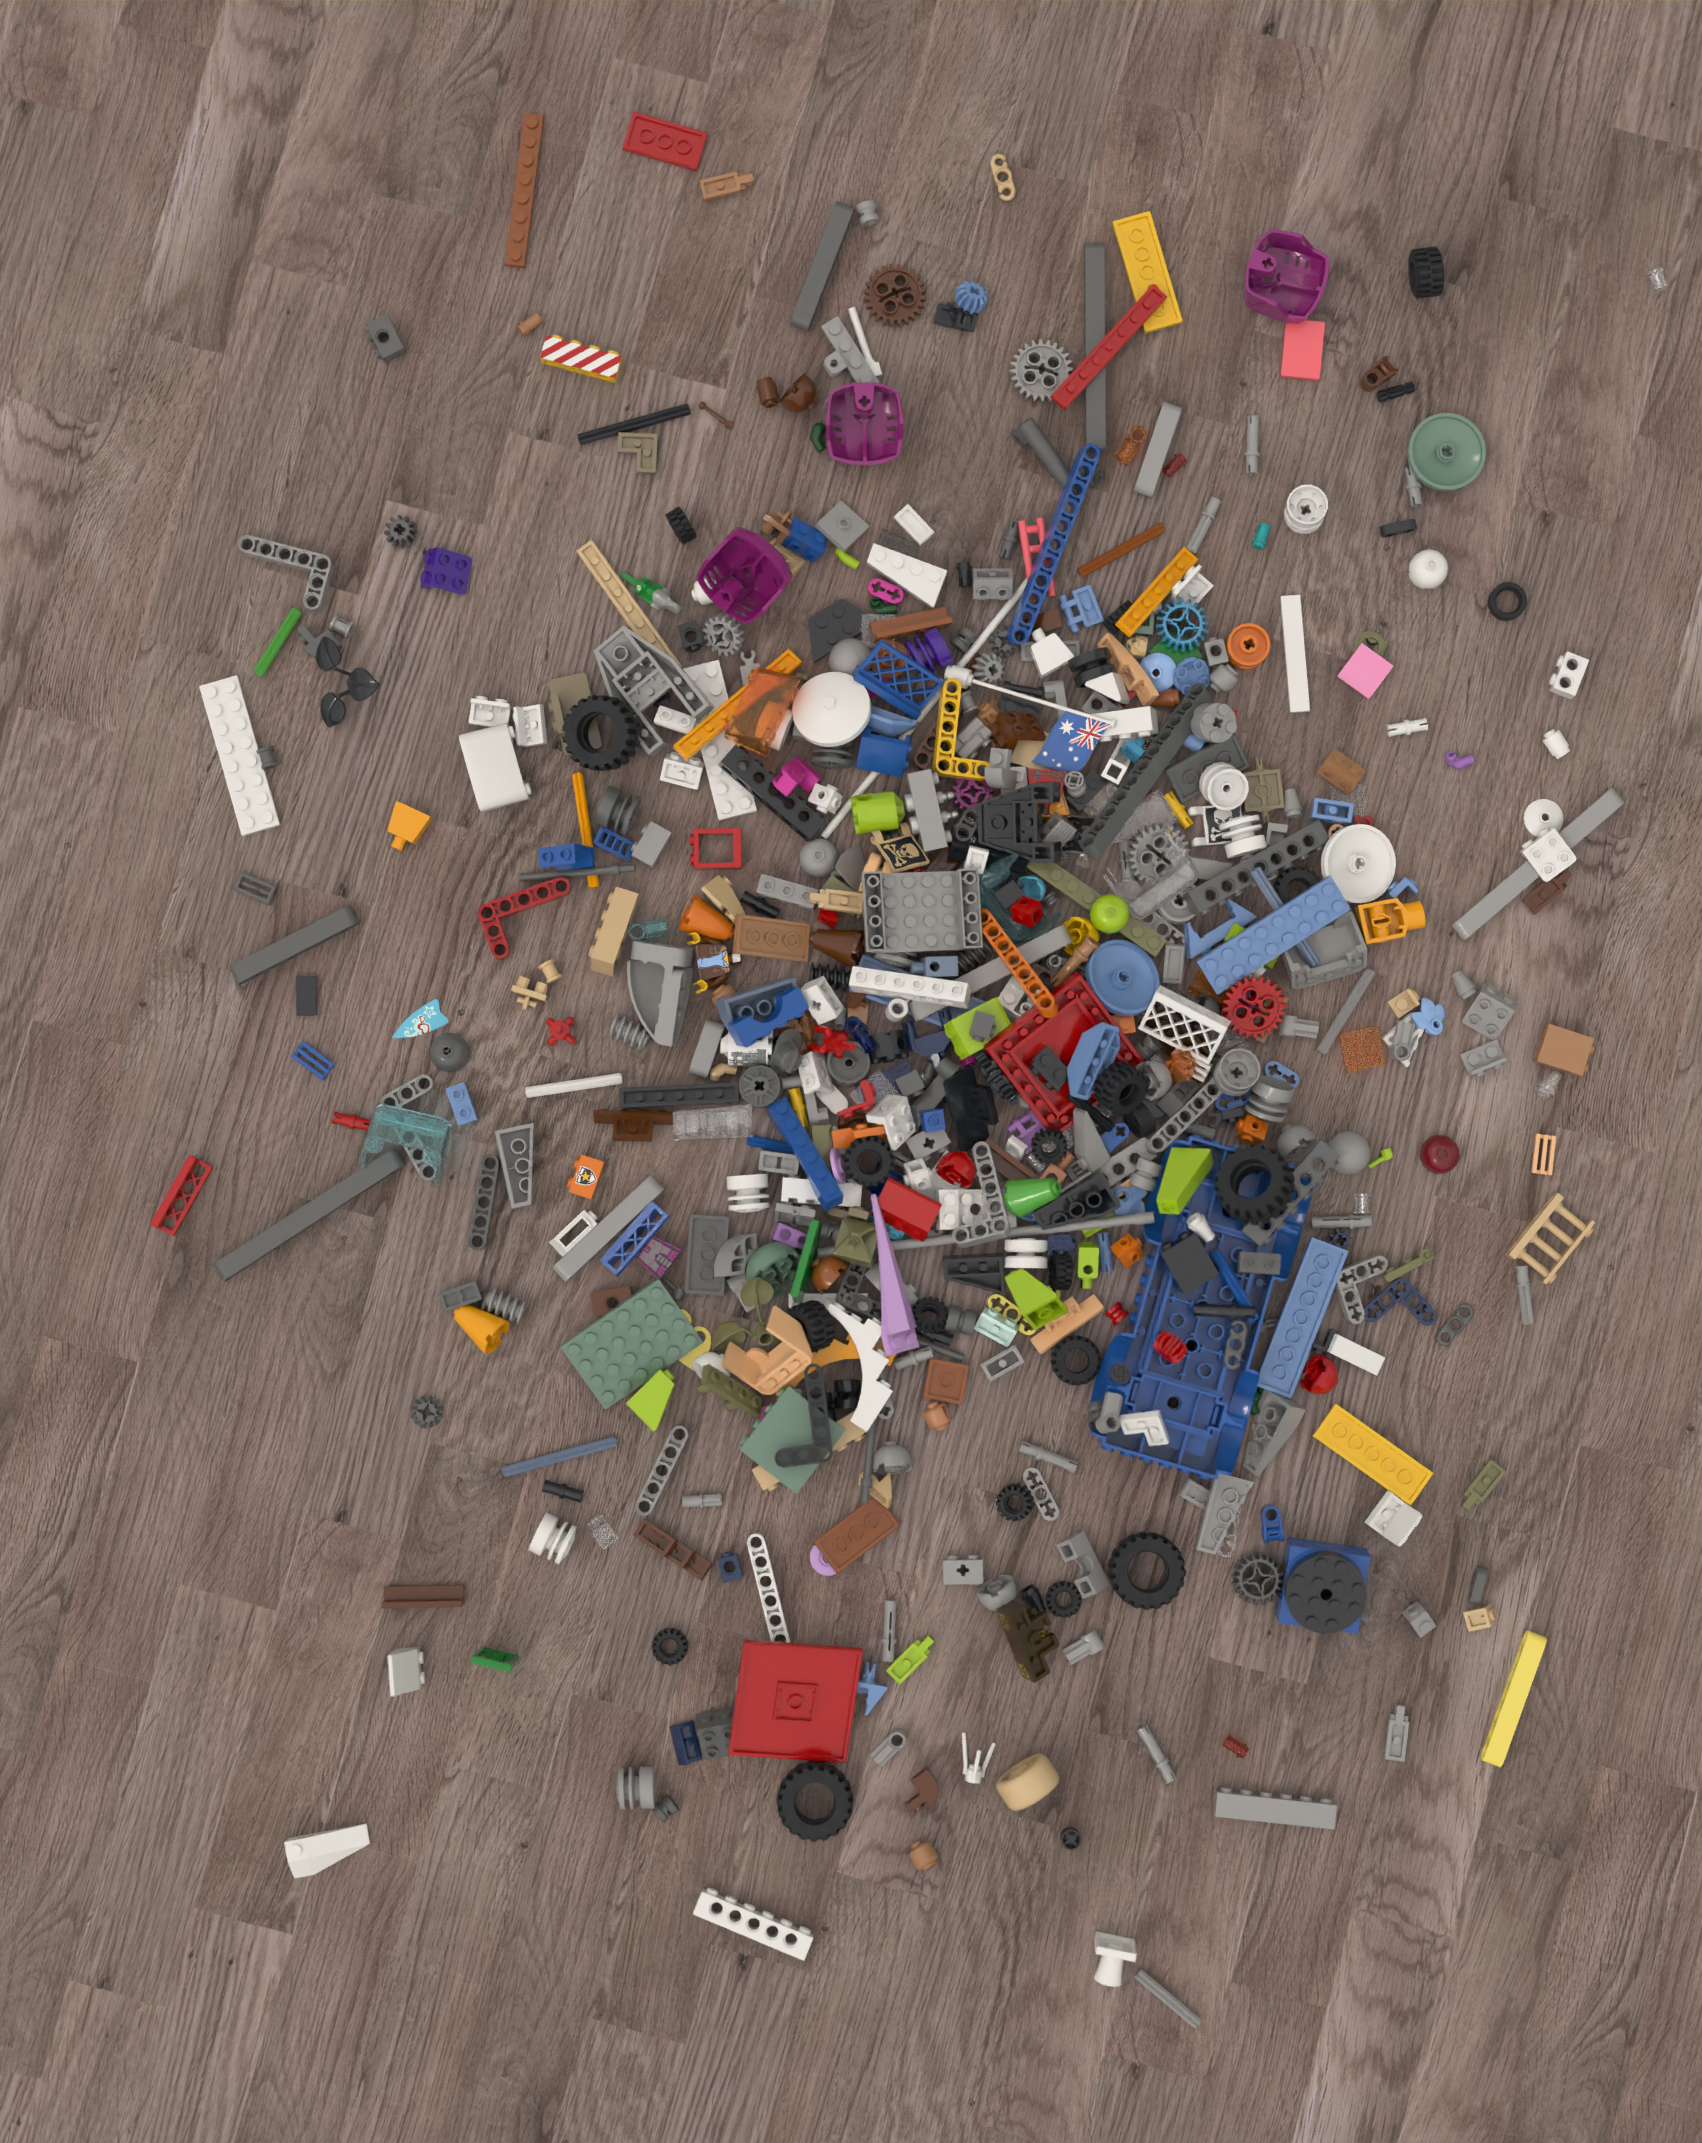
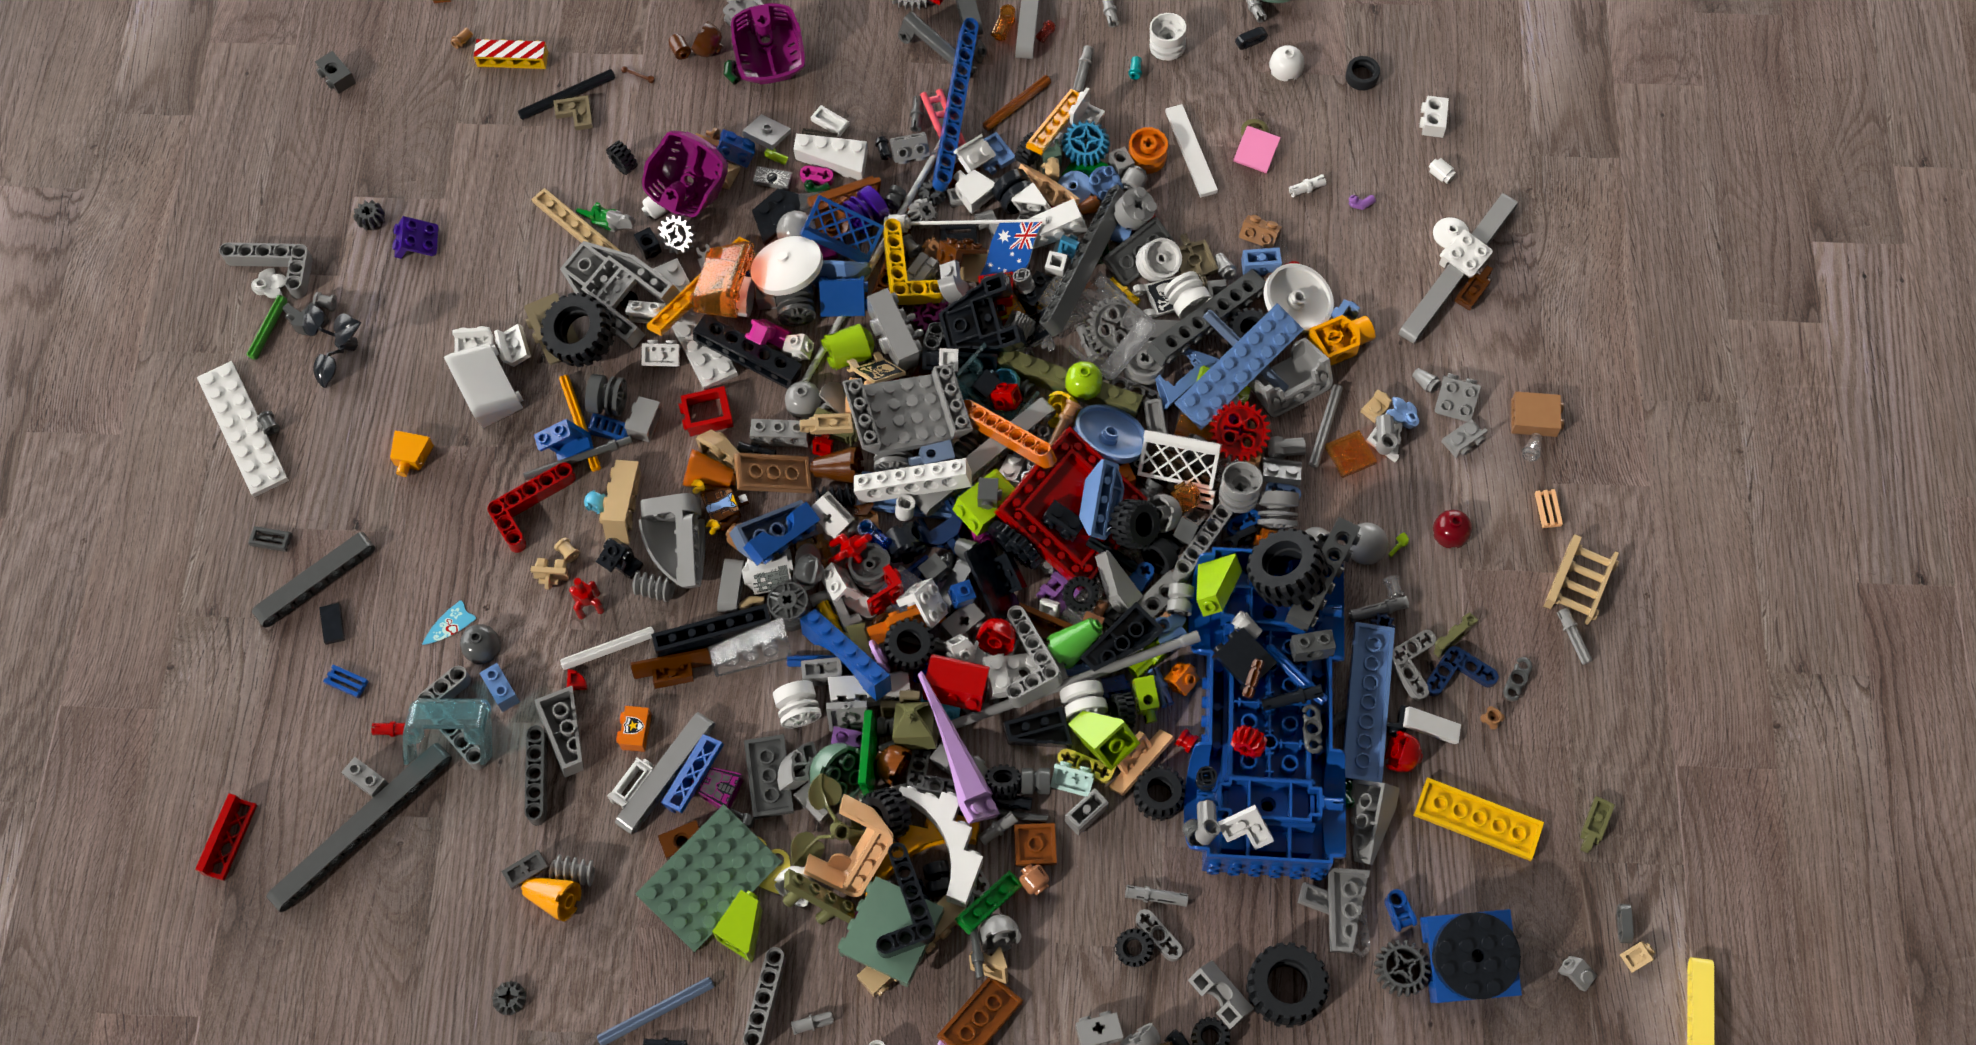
camera: 10 degrees left, 20 degrees down
(288, 589) = (270, 283): none -> white plate
(321, 1168) = (364, 777): none -> light grey brick
(537, 1111) = (576, 680): none -> red tile
(587, 926) = (594, 501): none -> medium azure piece
(598, 995) = (616, 552): none -> black tile
(650, 930) = (658, 490): clear light blue piece -> none
(838, 583) = (772, 178): none -> tile
(889, 1430) = (988, 902): none -> green tile
(1059, 612) = (974, 153): none -> white plate
(1190, 1287) = (1253, 678): none -> reddish brown axle
(1286, 1053) = (1281, 471): none -> light grey plate
(1393, 1519) = (1518, 875): white bracket -> none
(1412, 1357) = (1498, 717): none -> medium nougat plate

